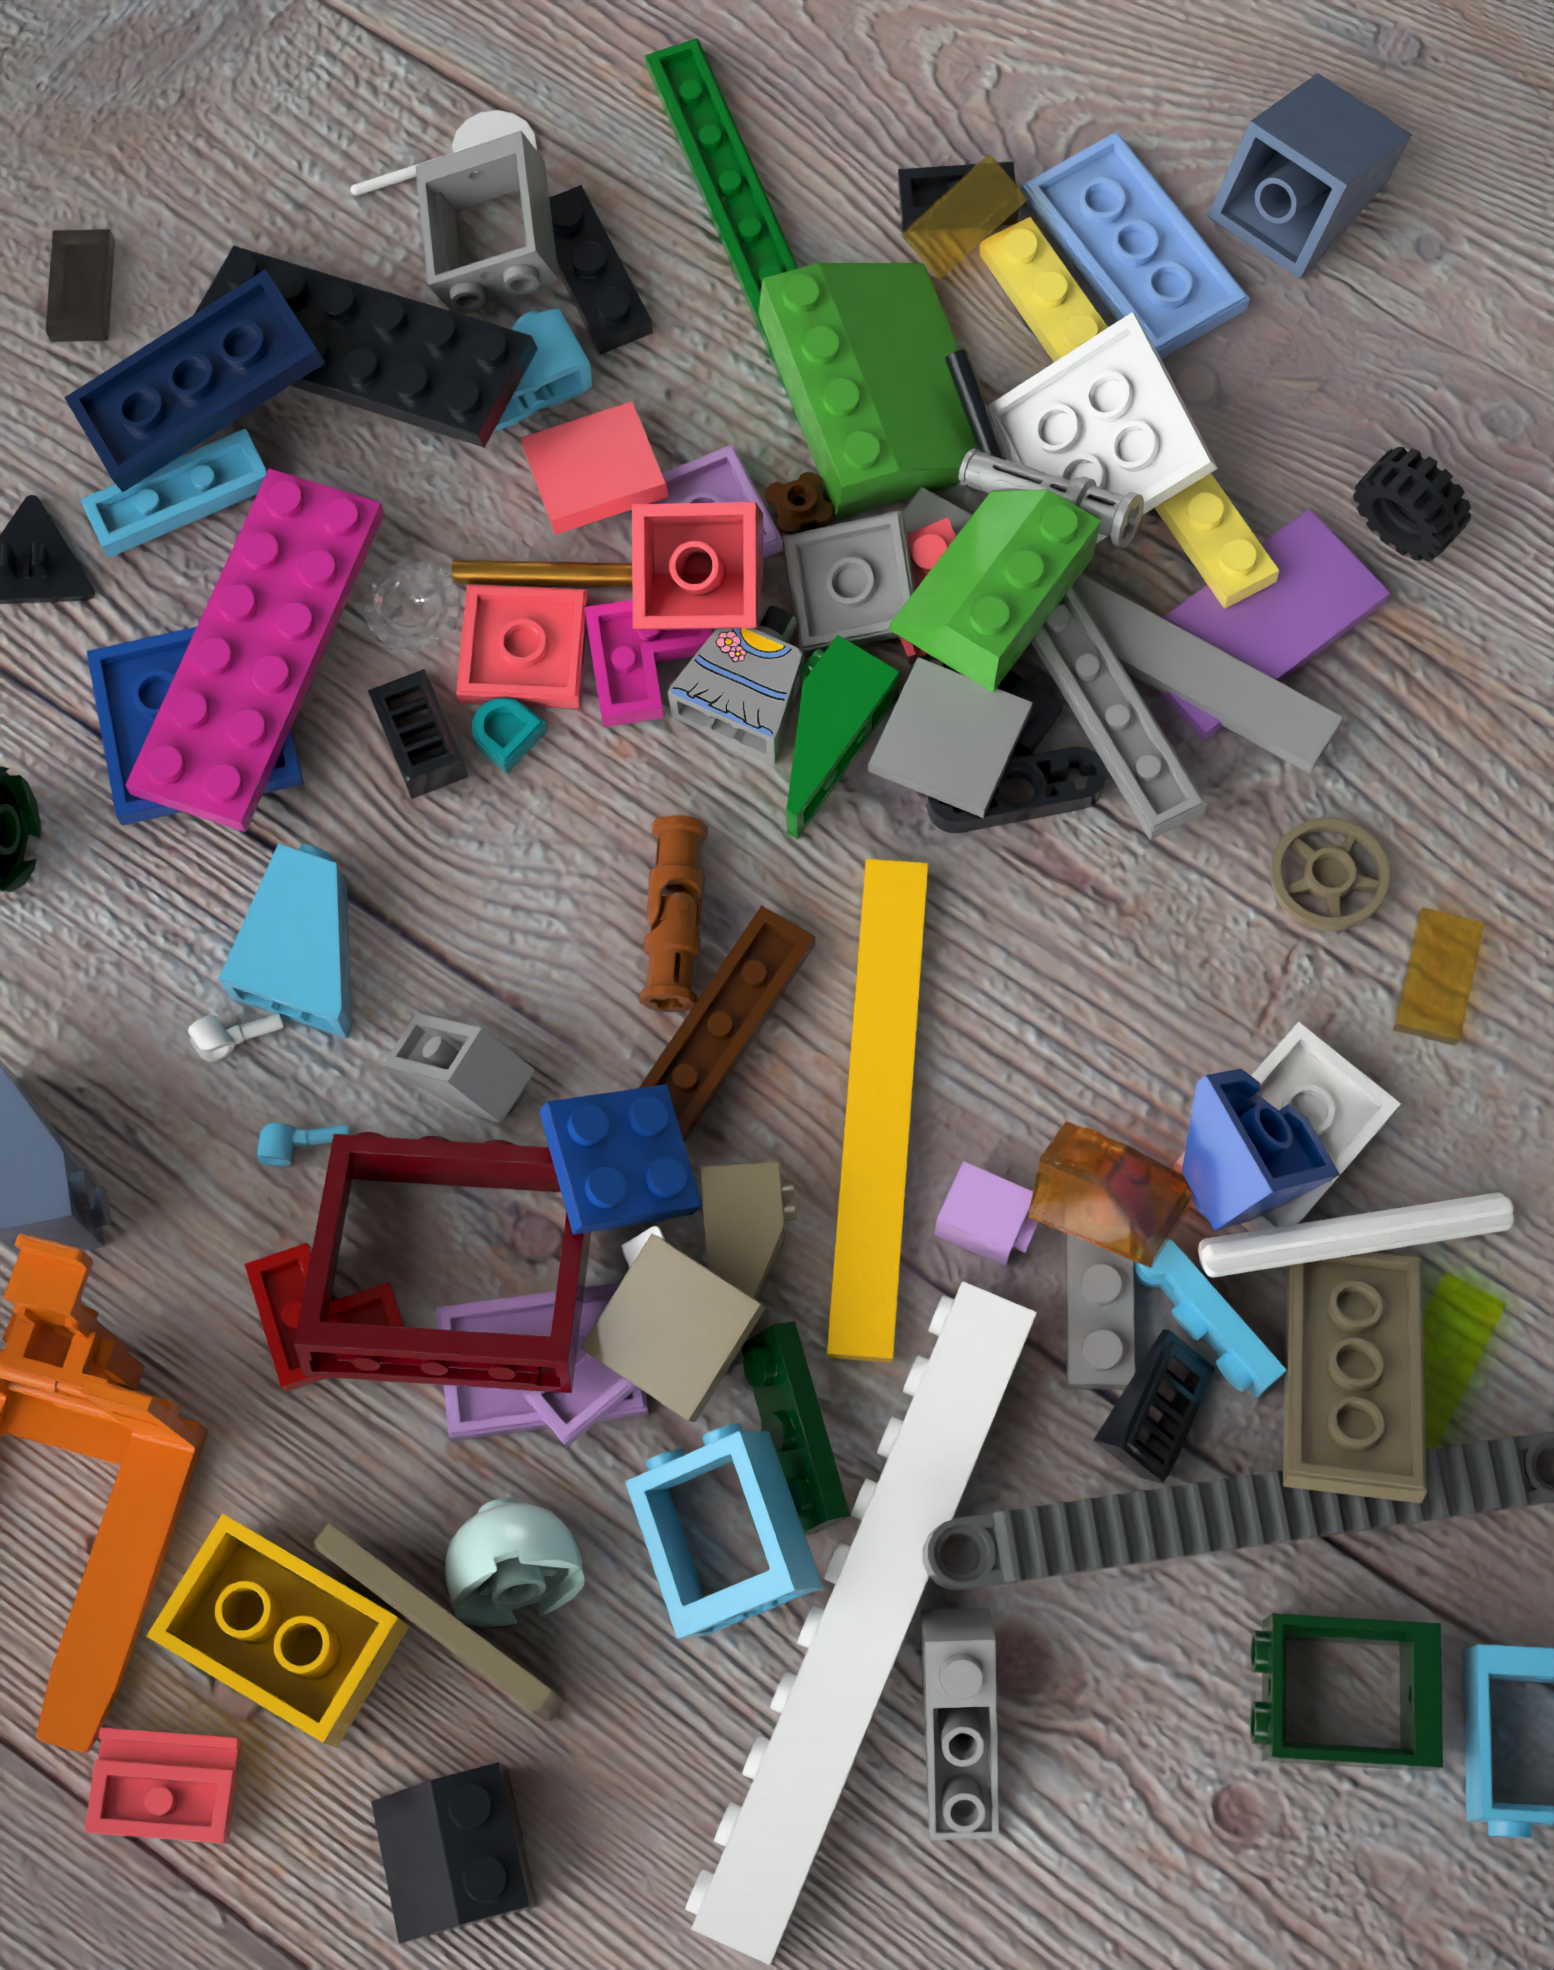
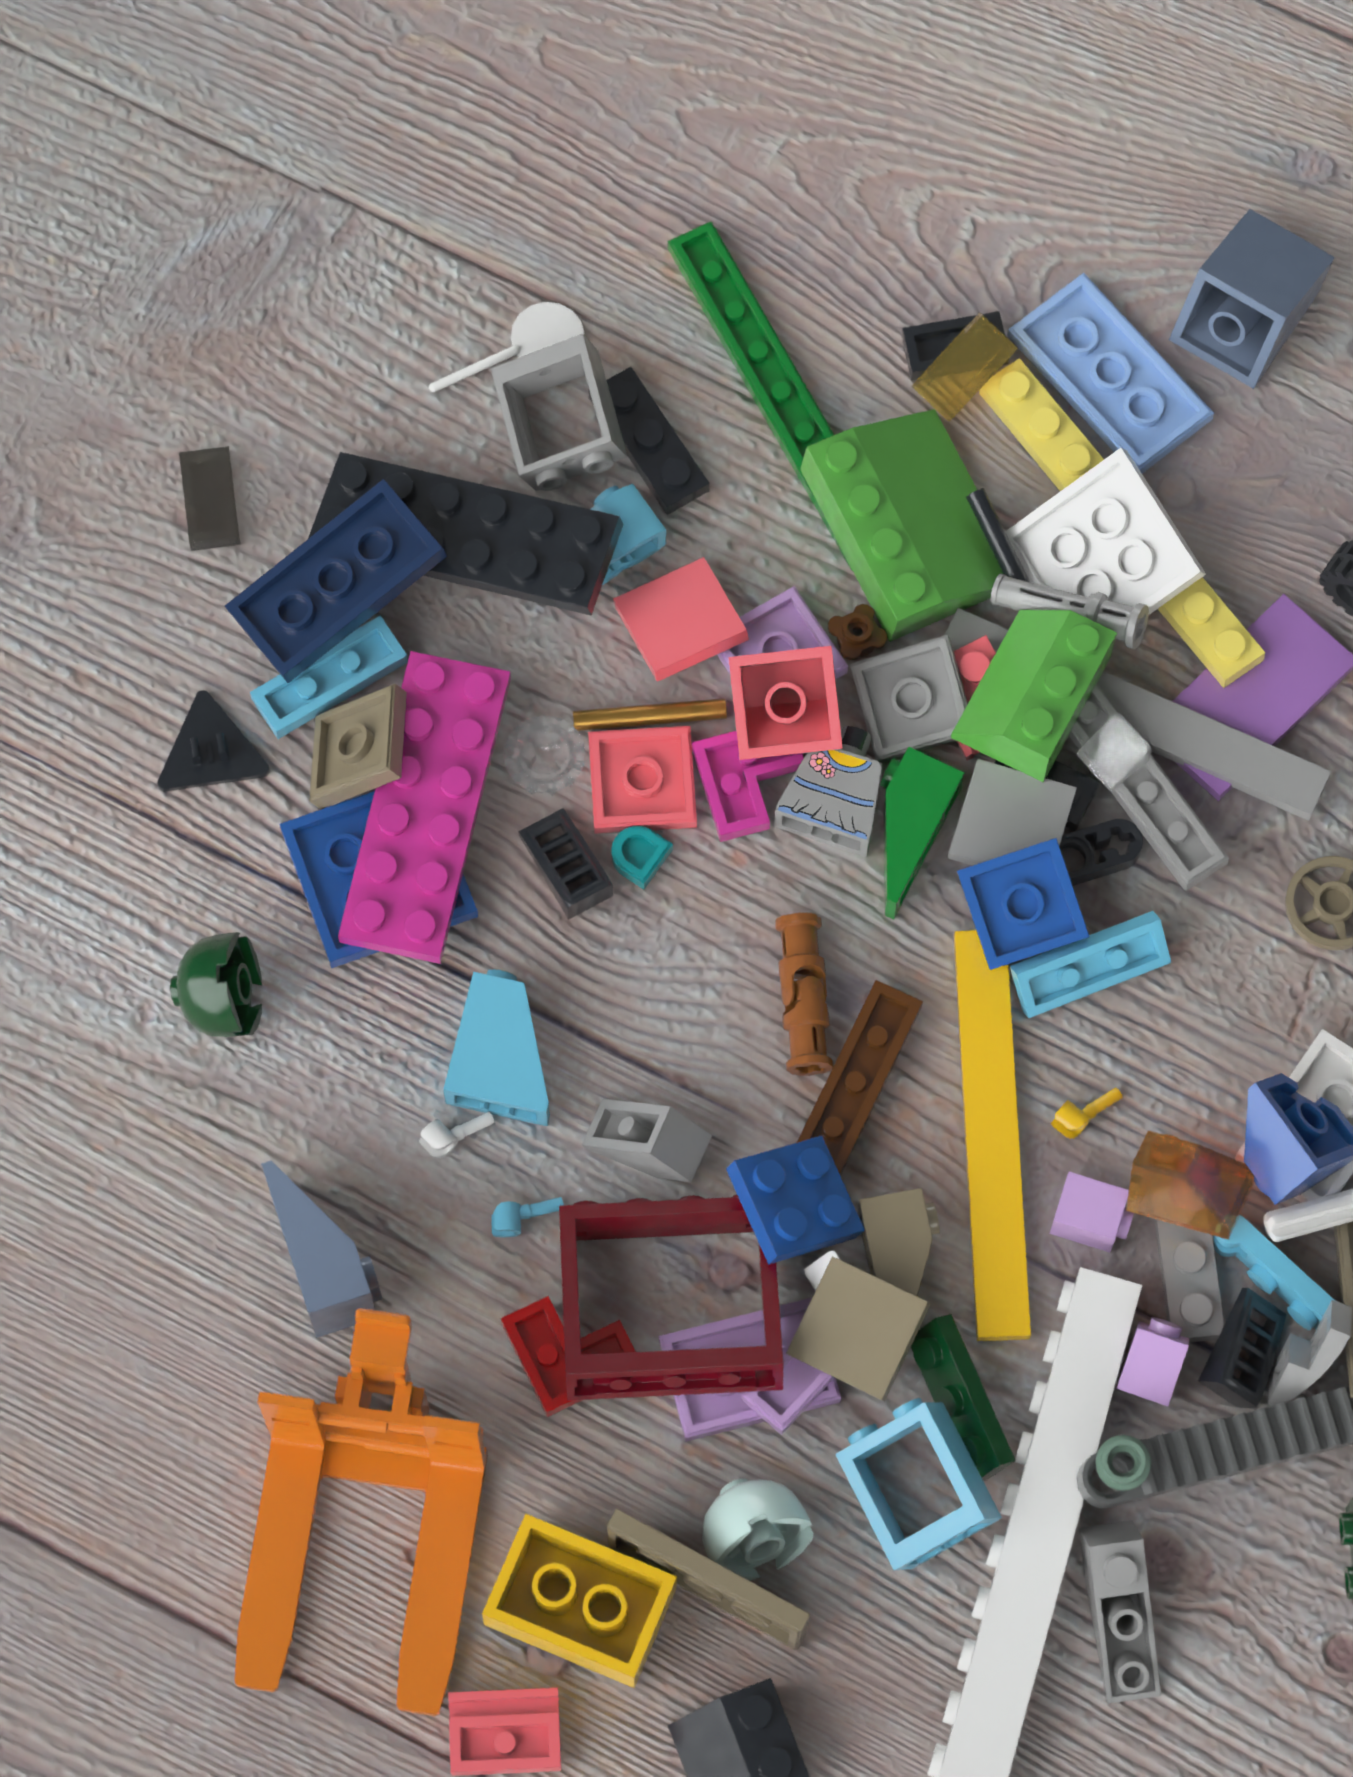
camera: 10 degrees left, 0 degrees up
(189, 570) = (358, 746): none -> dark tan tile
(949, 831) = (1023, 903): none -> blue plate
(979, 1101) = (1072, 1121): none -> yellow hand
(980, 1515) = (1123, 1445): none -> sand green plate
(1024, 914) = (1090, 964): none -> medium azure plate
(1040, 1409) = (1154, 1361): none -> lavender brick
(1084, 664) = (1115, 752): none -> clear slope
(1233, 1431) = (1306, 1361): none -> light grey slope

